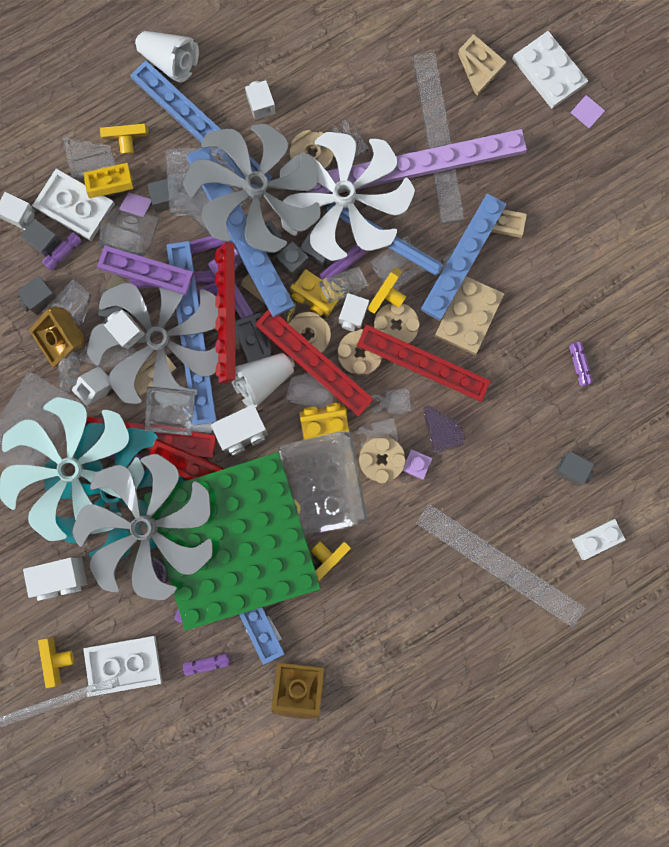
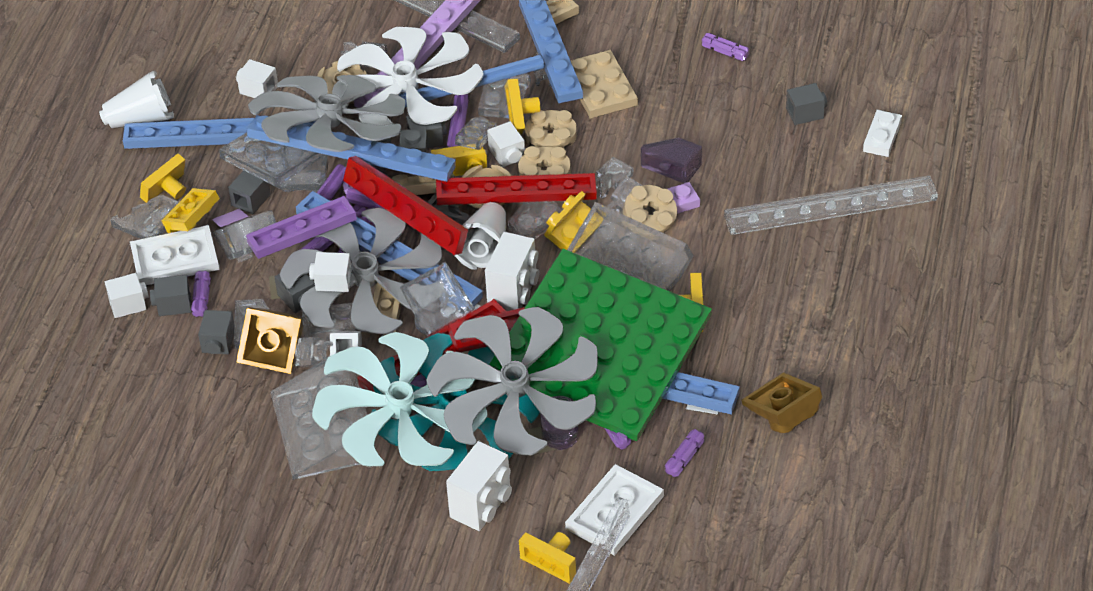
camera: 40 degrees left, 35 degrees down
(423, 363) = (603, 128): red plate -> none

